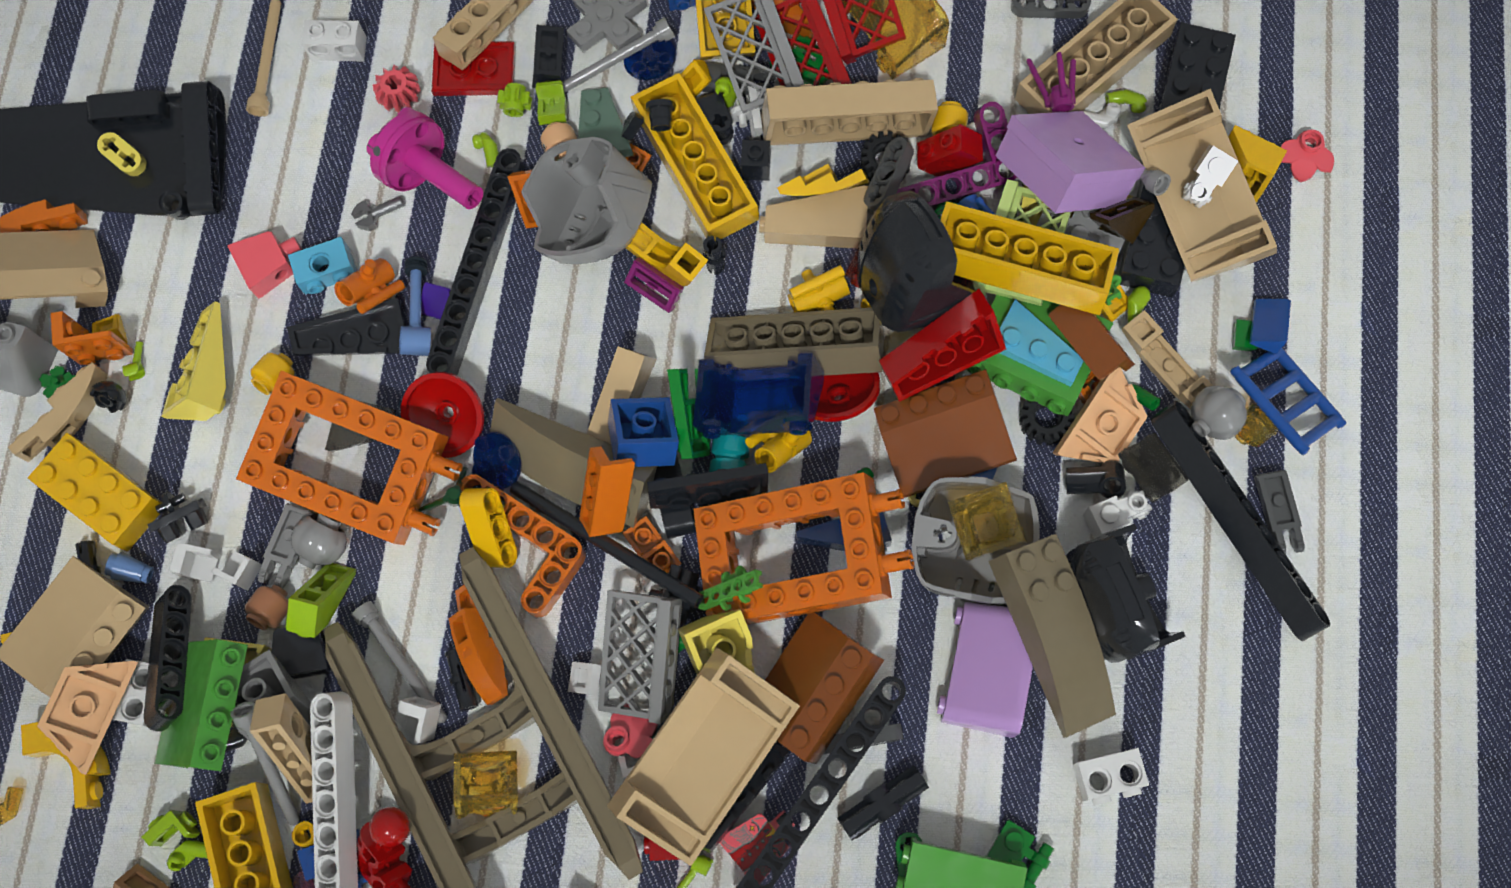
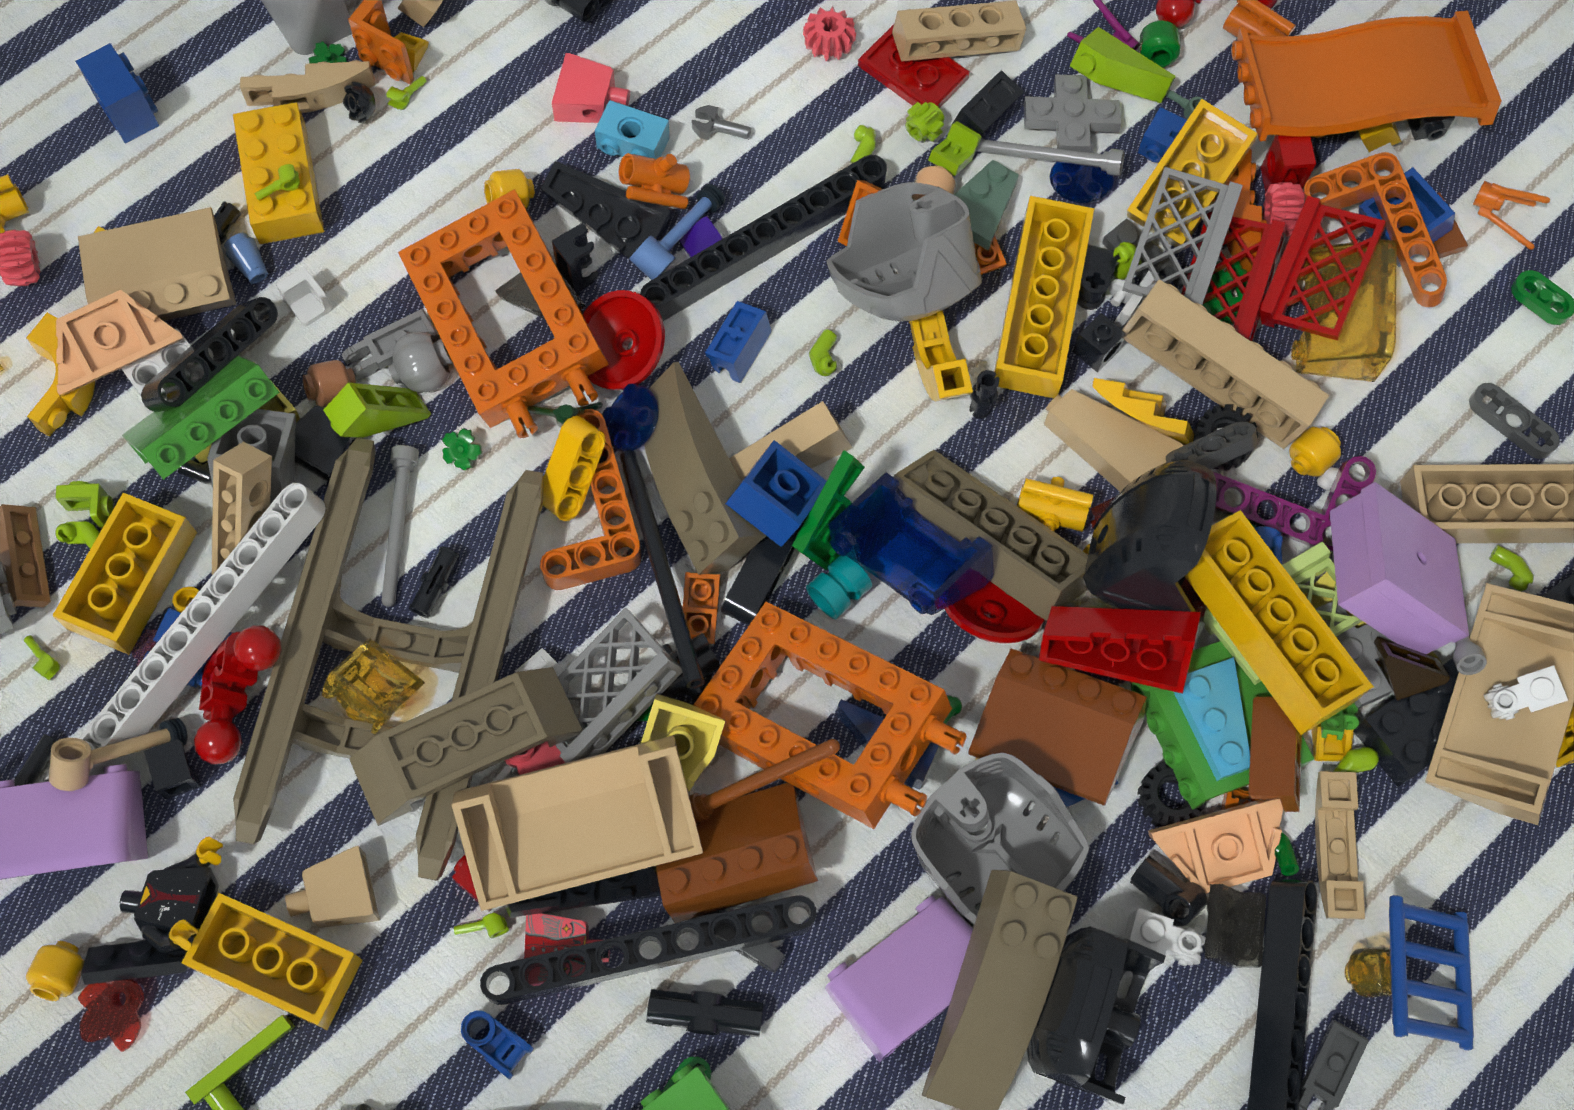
camera: 30 degrees right, 5 degrees down
(113, 493) = (287, 181): none -> lime hand
(167, 525) = (338, 252): black hips -> none
(203, 381) = (442, 153): light yellow wedge -> none
(239, 570) = (333, 334): white panel -> none
(242, 718) = (218, 445): light grey piece -> none
(357, 383) = (573, 255): none -> black hinge
(398, 576) = (460, 449): none -> green plant
(411, 152) = (789, 95): dark pink piece -> none
(422, 717) = (372, 586): white panel -> none
(477, 650) = (467, 569): orange slope -> none
(521, 349) = (739, 340): none -> blue hinge
(580, 768) = (462, 740): none -> dark tan slope
(582, 314) = (820, 355): none -> lime arm
(605, 493) = (697, 520): orange panel -> none
(632, 125) = (1009, 222): black tile -> none
(655, 280) = (912, 377): magenta tile -> none
(660, 114) = (1042, 230): black piece -> none
(696, 76) = (1108, 226): yellow slope -> none
(708, 487) = (794, 591): black wing -> none
(728, 590) = (729, 694): bright green piece -> none
(771, 672) = (704, 804): none -> dark orange piece
(777, 447) = (891, 611): yellow pin -> none
(957, 147) = (1291, 475): red brick -> none
(987, 521) = (1023, 833): clear yellow brick -> none
(1061, 97) = (1444, 508): magenta plant -> none
(1107, 116) = (1477, 568): white arm -> none
(1218, 412) = (1345, 927): light grey plant -> none
(1241, 336) = (1442, 883): green tile -> none
(1270, 324) = (1474, 889): blue slope -> none

